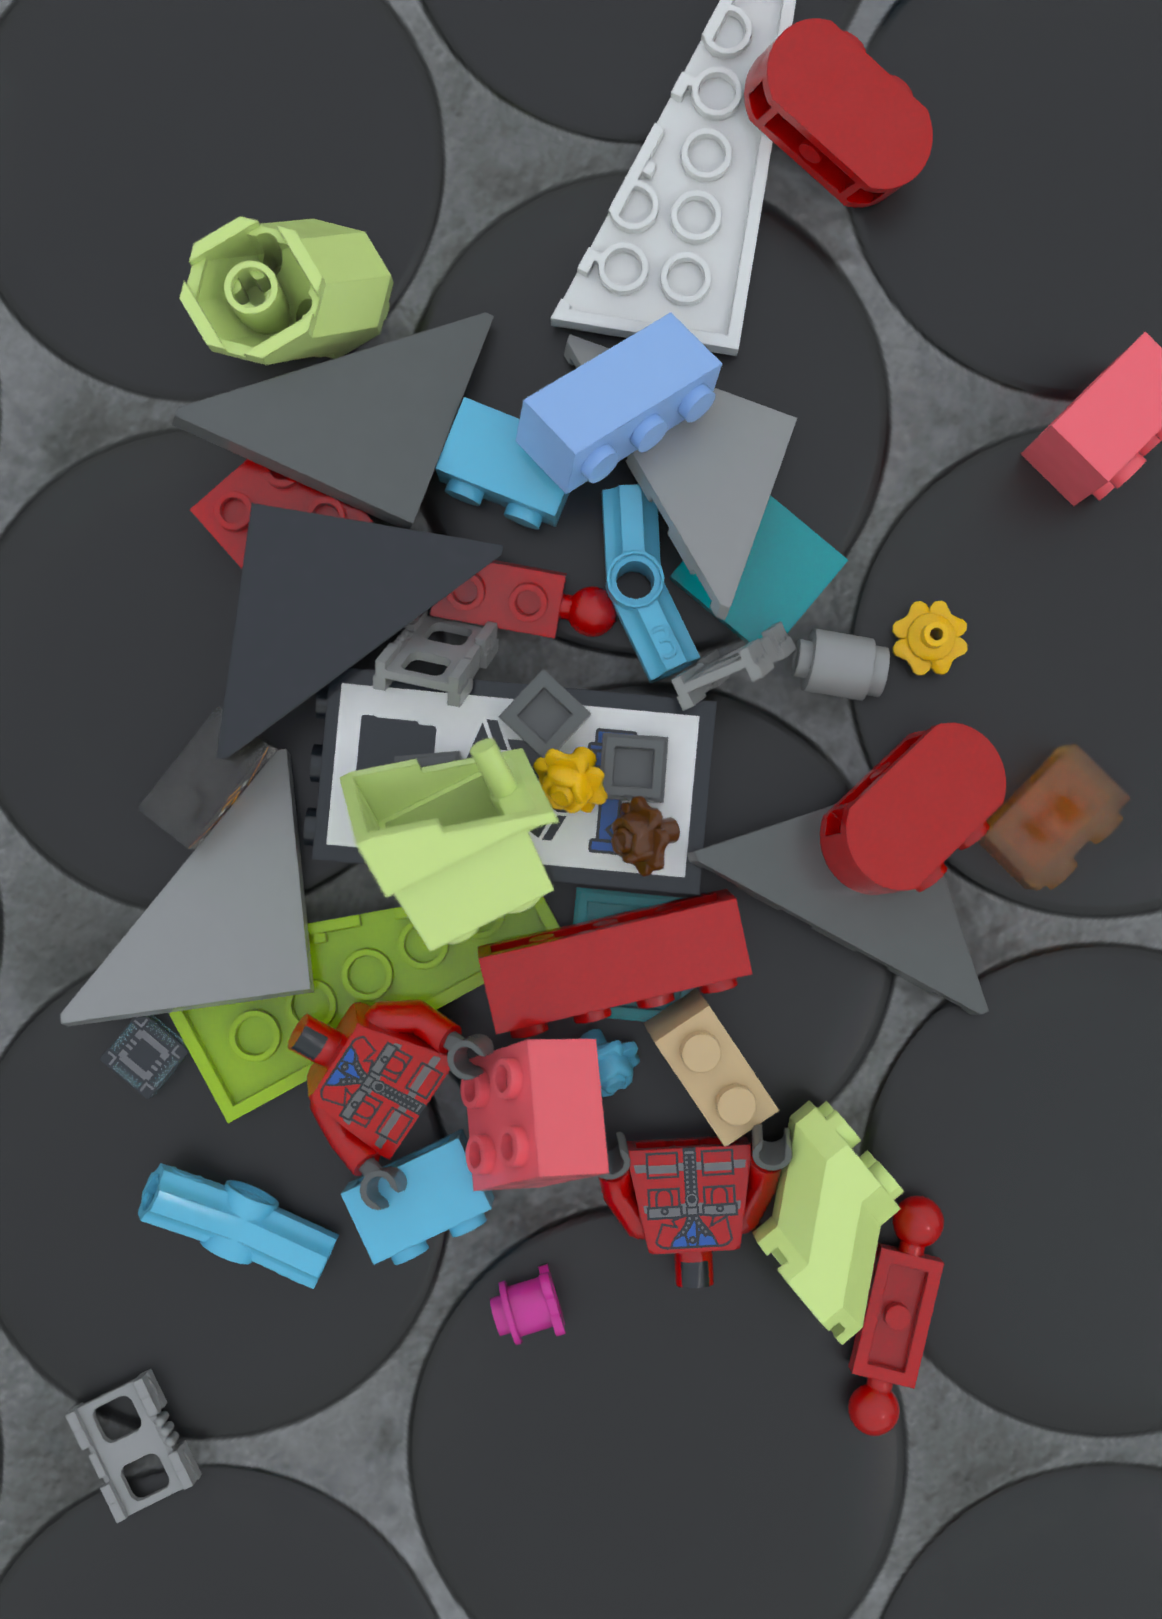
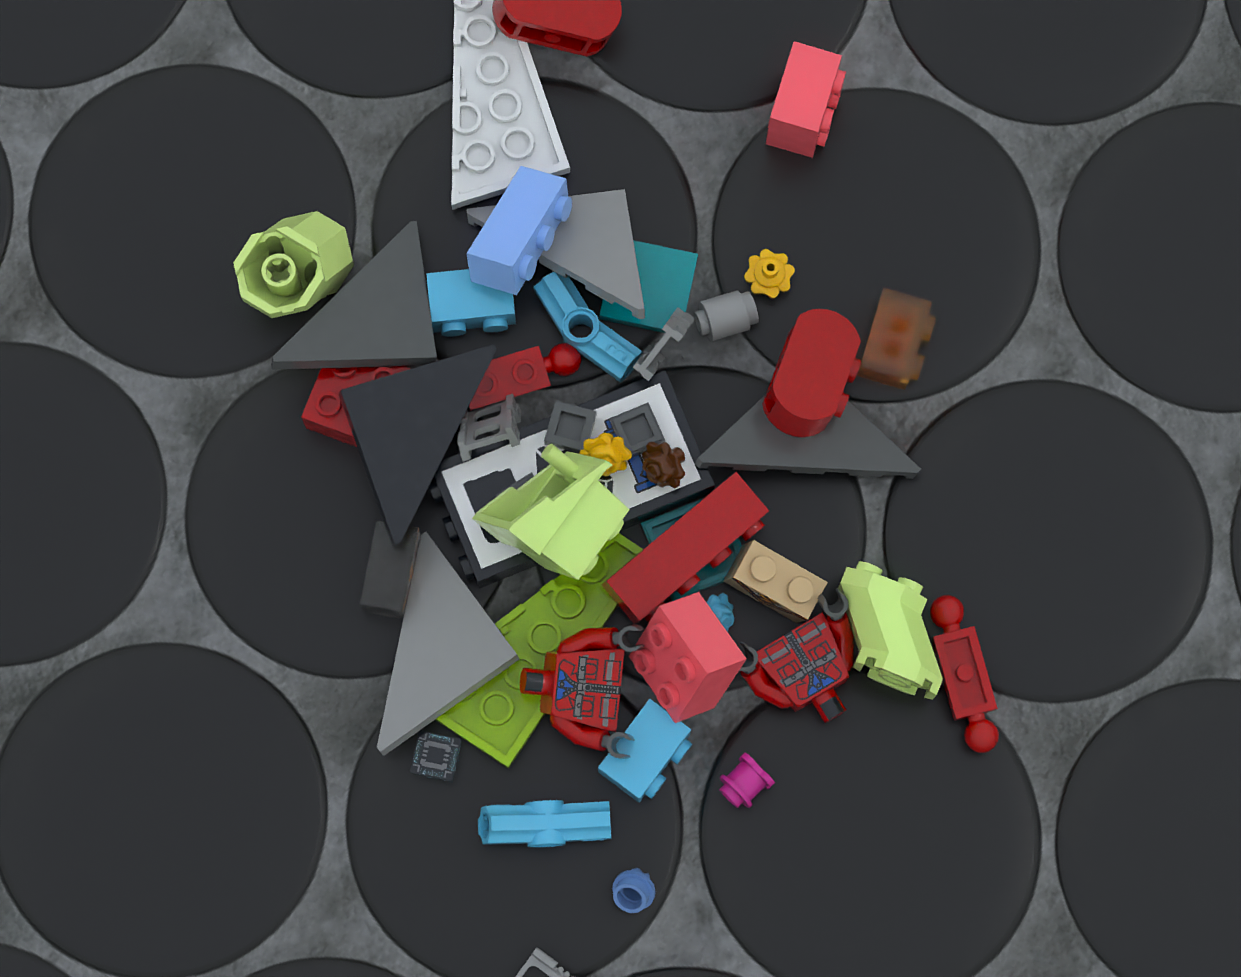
camera: 30 degrees left, 10 degrees down
(308, 1371) = (633, 890): none -> medium blue plate

